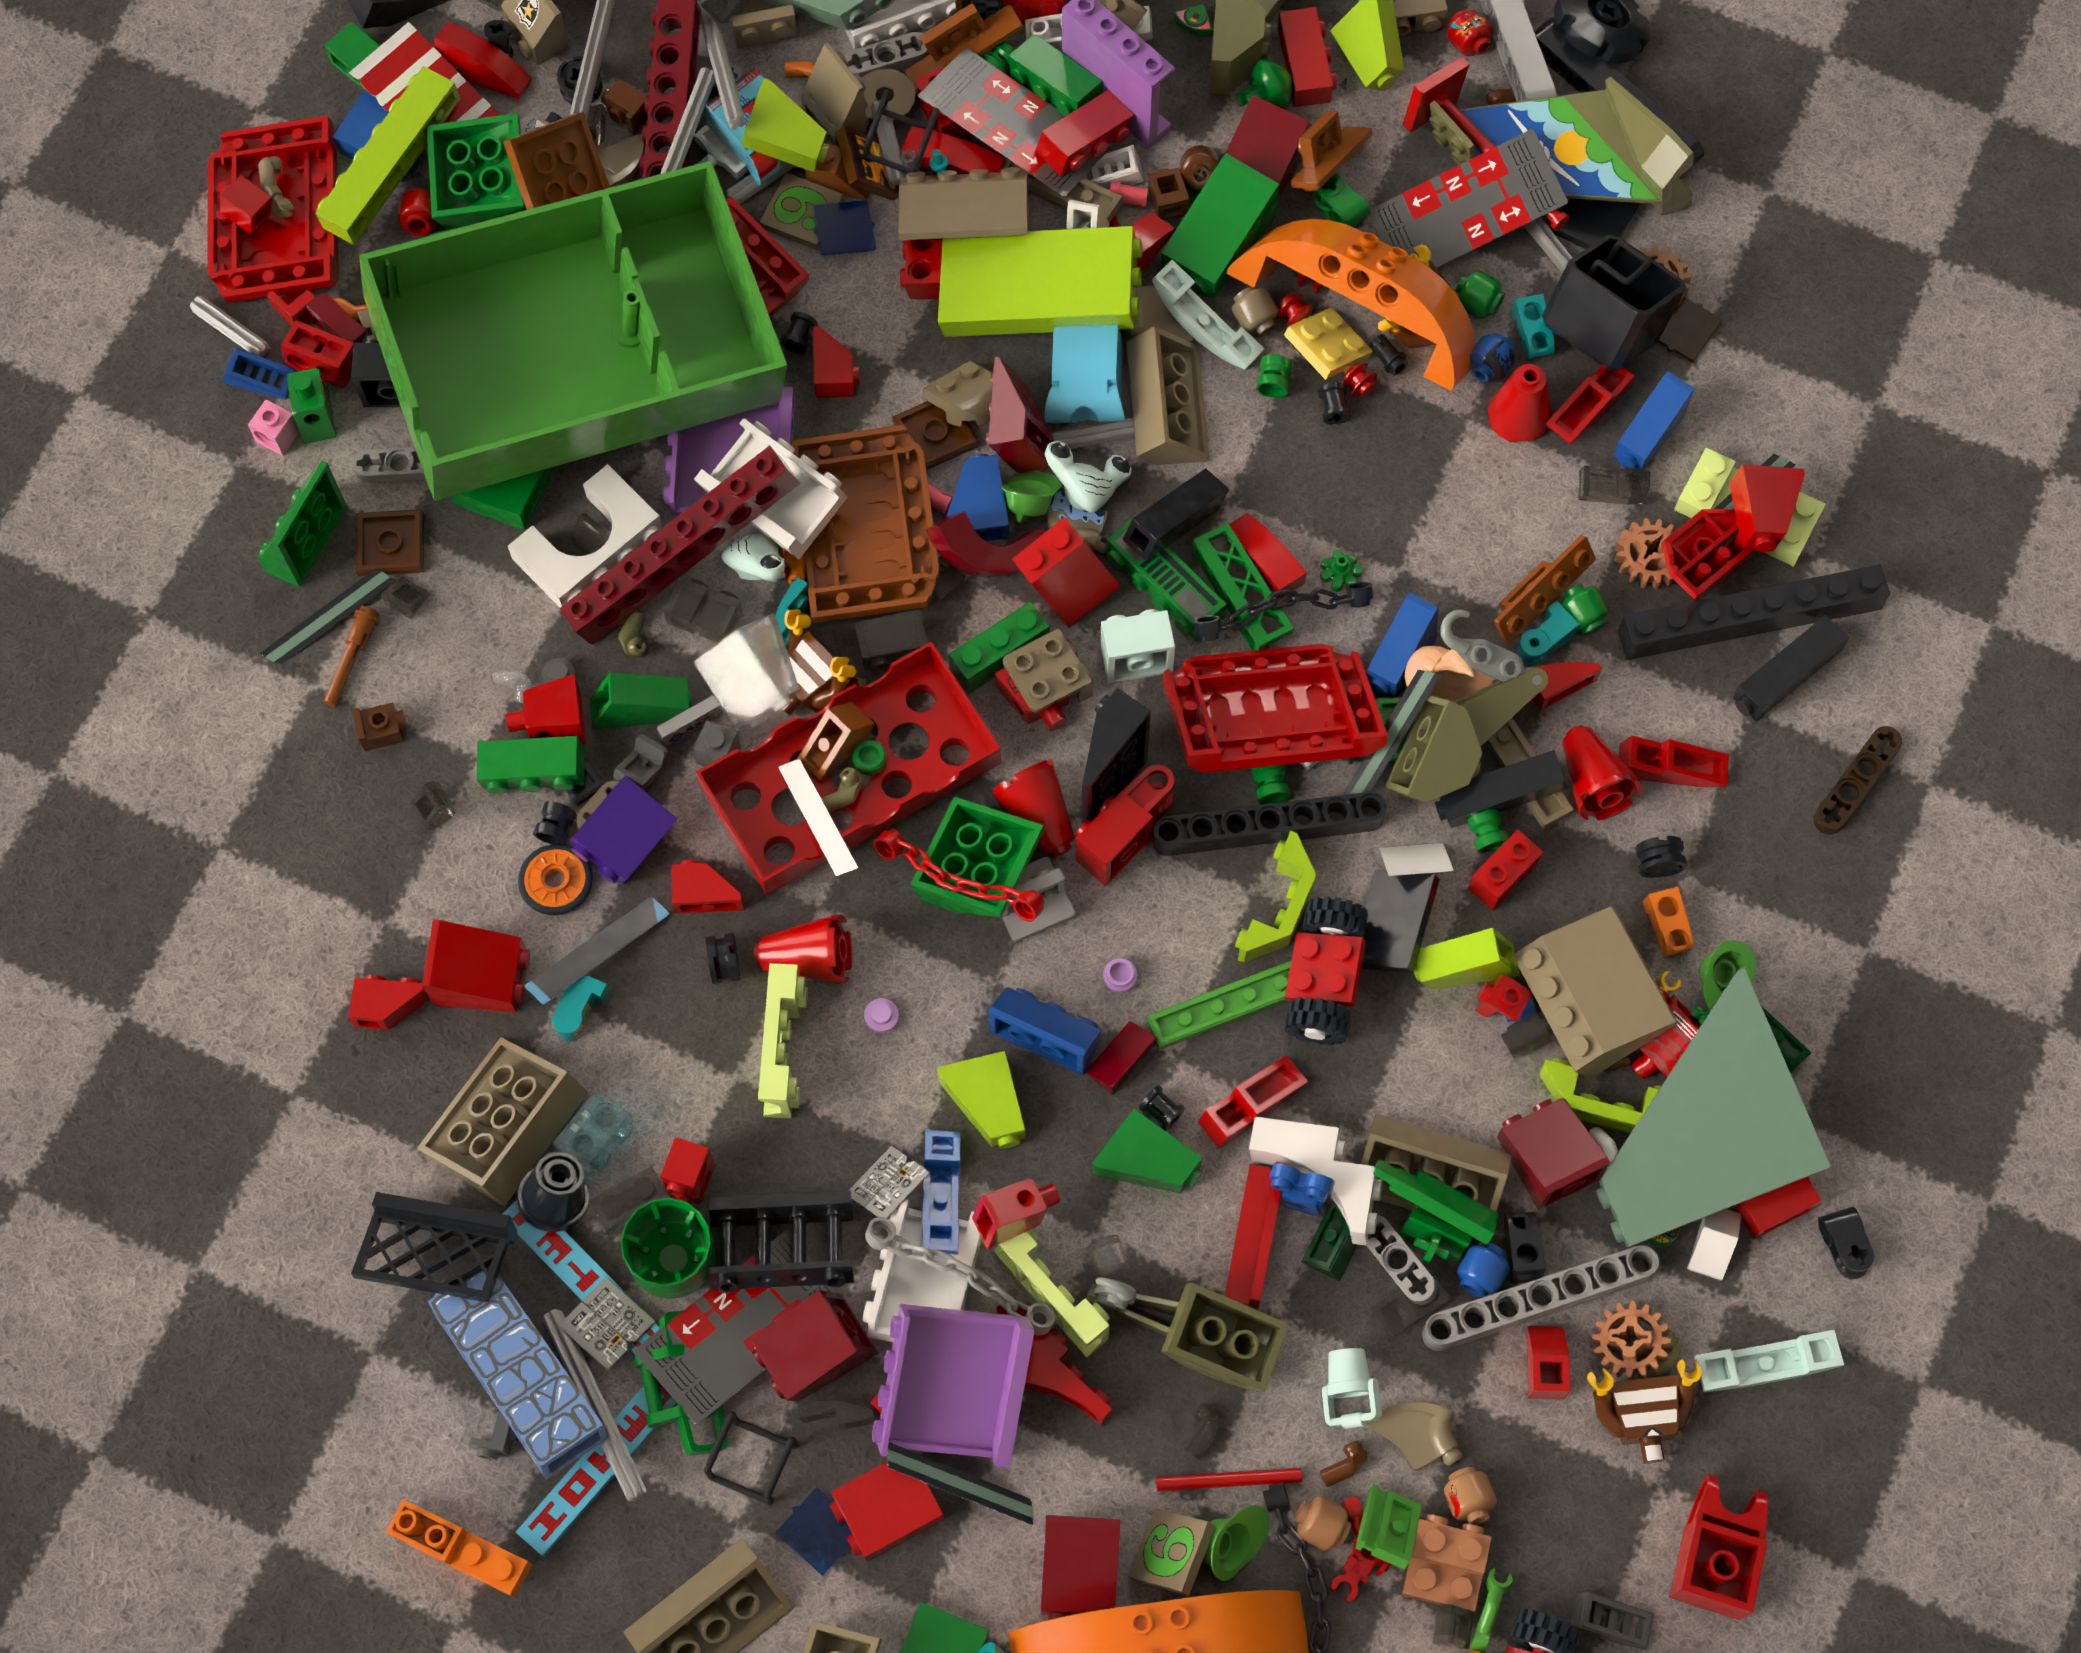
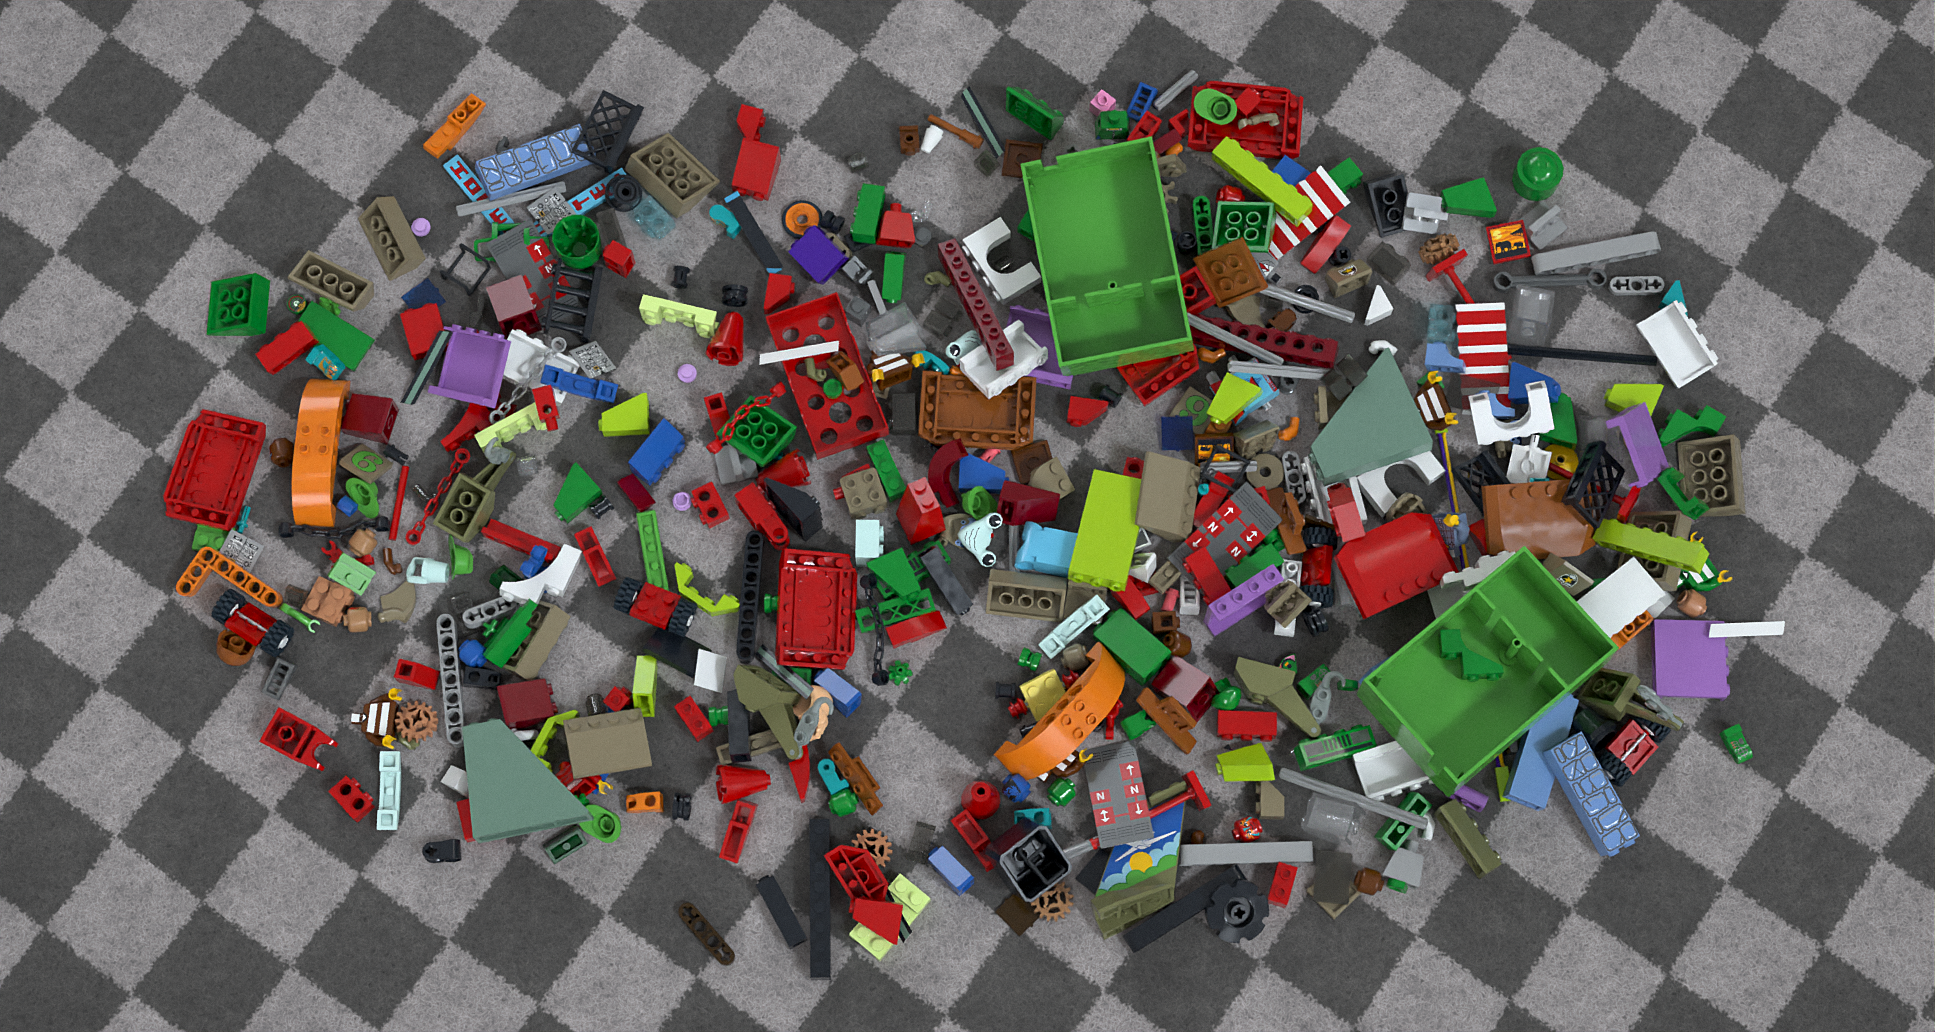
camera: 100 degrees right, 5 degrees up
(260, 244) = (1215, 106): none -> bright green piece
(370, 691) = (931, 138): none -> white cone
(675, 1568) = (420, 227): none -> lavender plate
(700, 1063) = (680, 277): none -> black bush
(951, 940) = (717, 411): none -> red slope
(1113, 917) = (714, 503): none -> red brick
(1138, 1506) = (395, 454): none -> black pin
(1186, 583) = (896, 574): none -> green slope
(1256, 1572) = (347, 505): none -> blue hose
(1287, 1424) = (435, 500): none -> red piece
(1314, 1337) = (460, 559): none -> bright green piece
(1805, 1429) = (349, 801): none -> red brick

